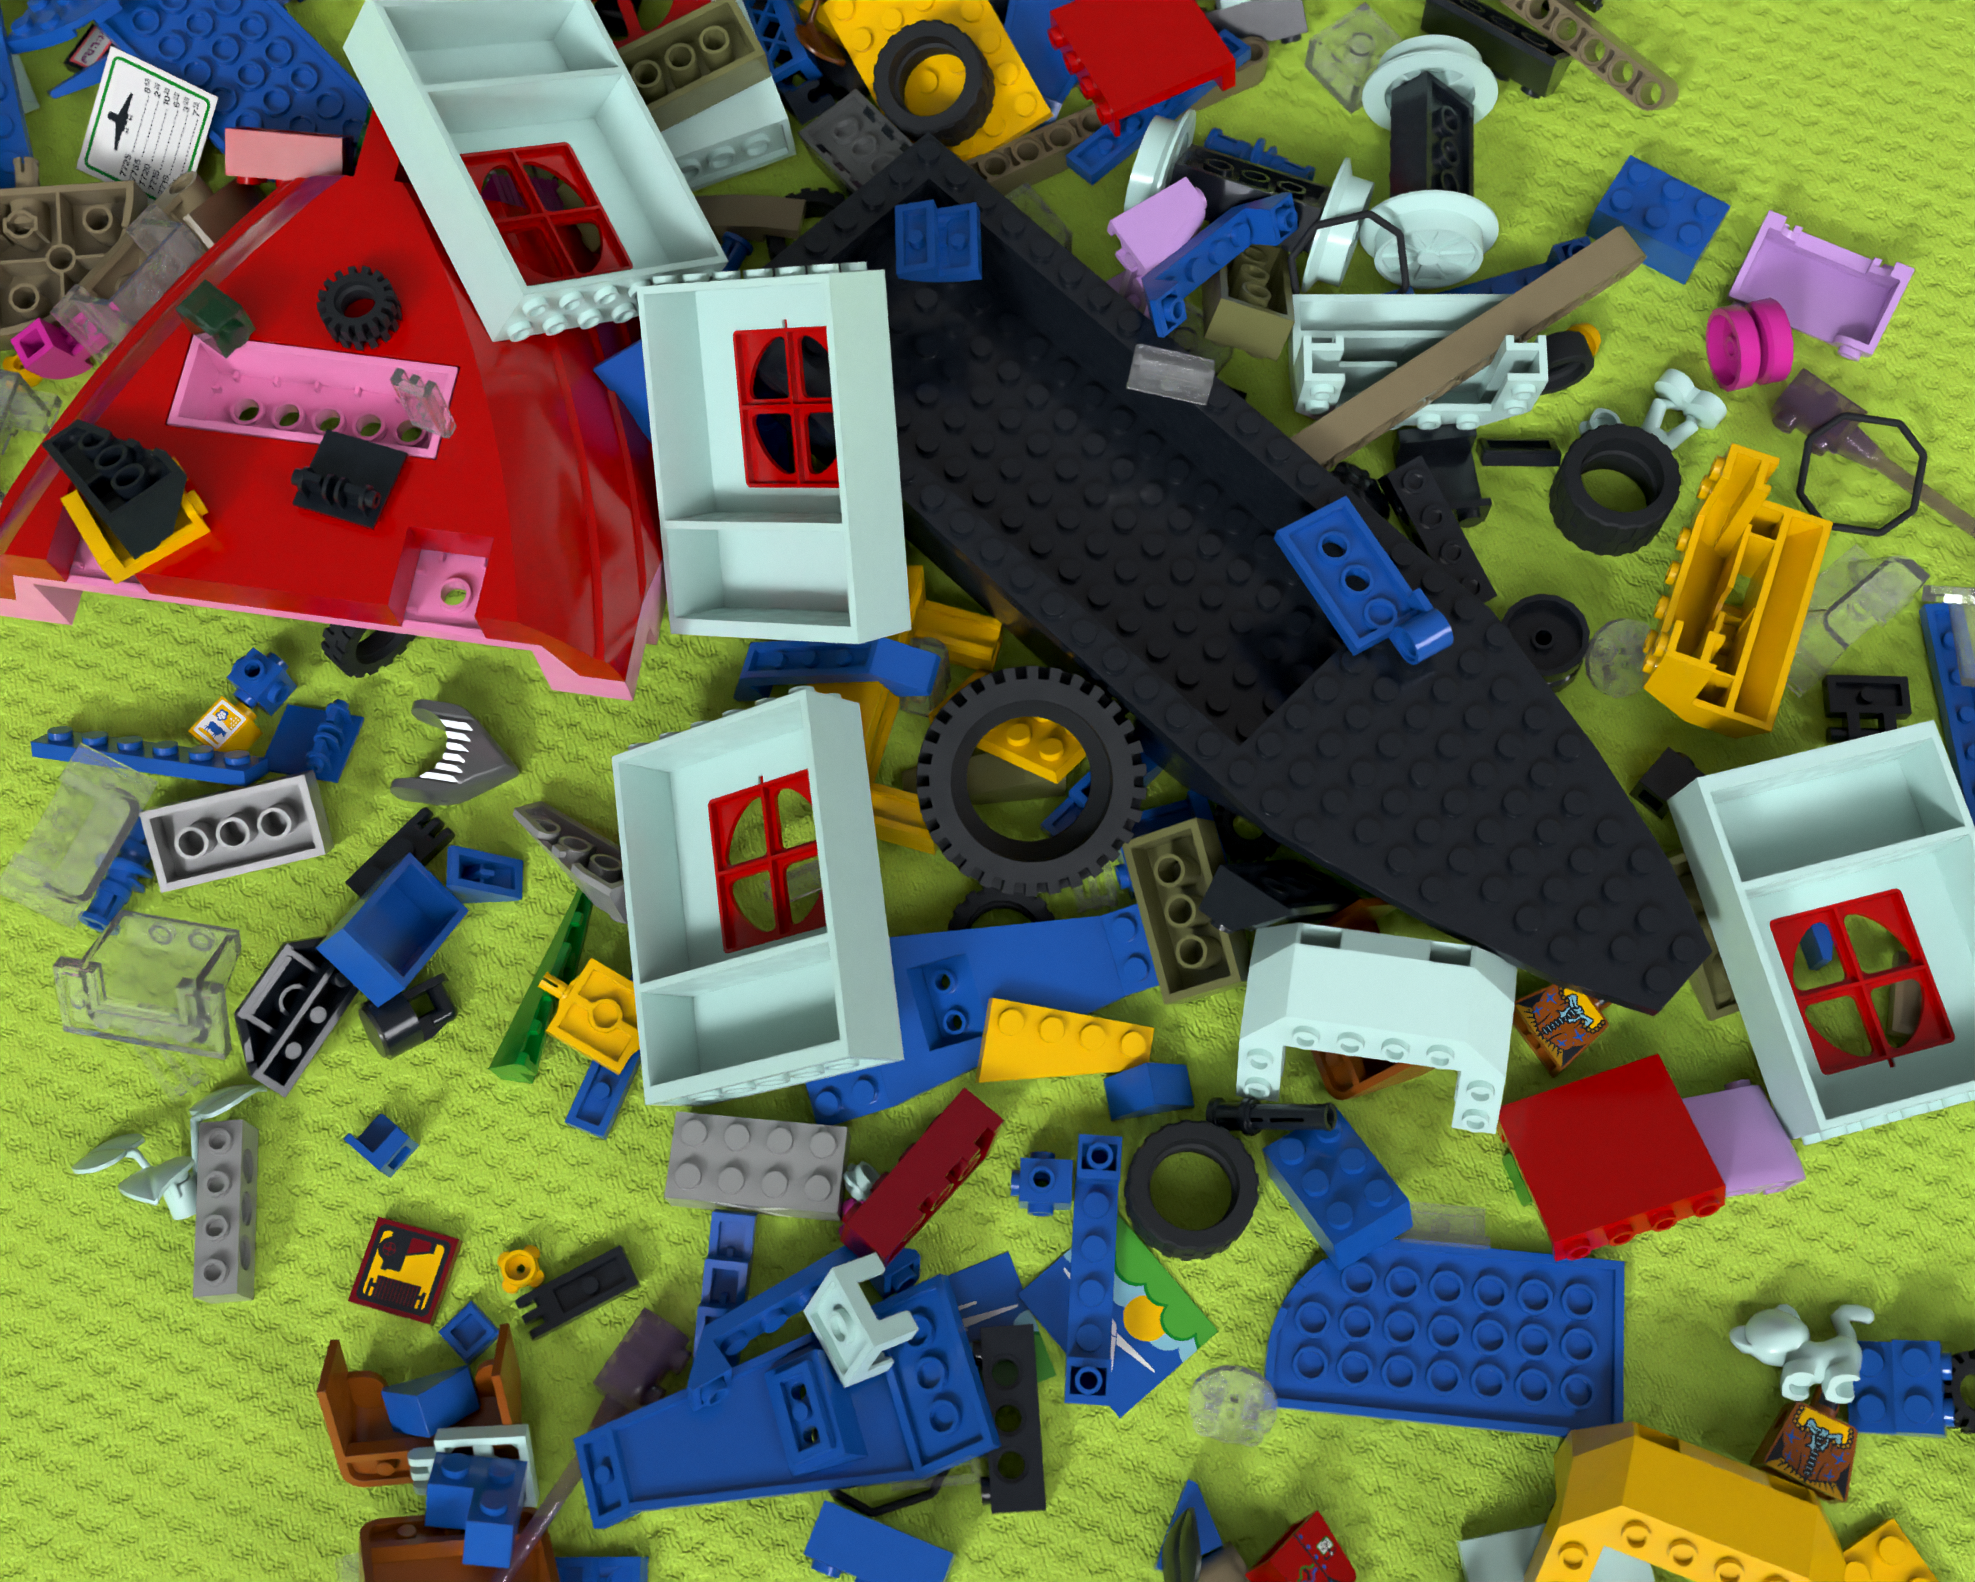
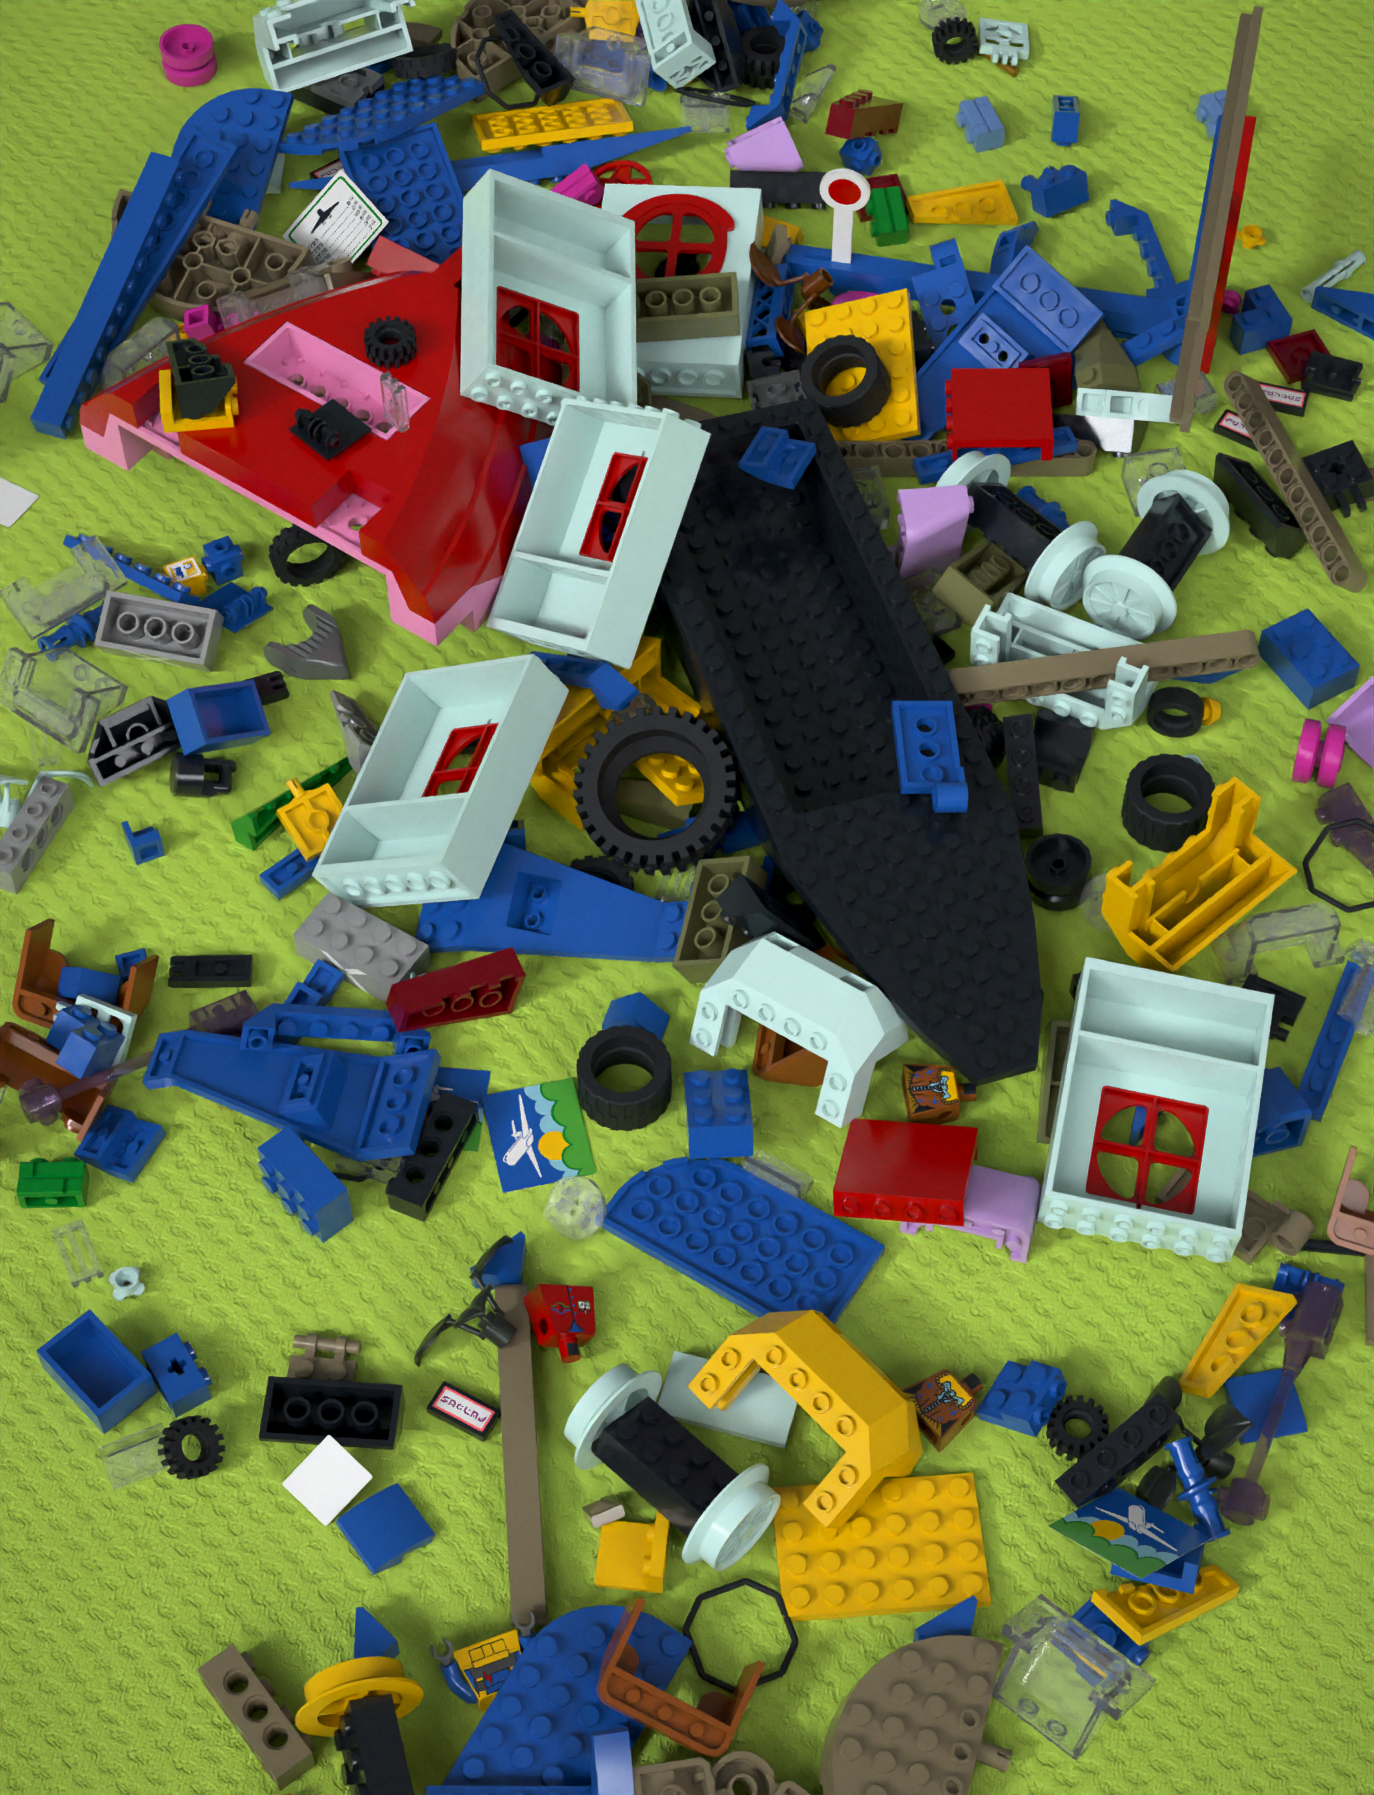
camera: 25 degrees right, 15 degrees down
(215, 319) = (303, 314): clear green brick -> none
(405, 1271) = (115, 916): tile -> none
(483, 876) = (290, 721): blue slope -> none
(512, 1260) = (181, 938): yellow plate -> none
(849, 1326) = (361, 1043): light aqua panel -> none
(1043, 1200) = (534, 1035): blue brick -> none
(1049, 1042) = (581, 954): yellow wing -> none
(1092, 1270) = (538, 1096): blue slope -> none
(1171, 374) = (881, 589): clear panel -> none
(1253, 1117) = (691, 1054): black pin -> none
(1256, 222) = (960, 539): blue slope -> none
(1345, 219) = (1063, 554): black piece -> none
(1518, 452) = (1114, 755): black tile -> none
(1679, 393) = (1255, 769): light aqua piece -> none
(1783, 1340) = (964, 1346): light aqua animal -> none

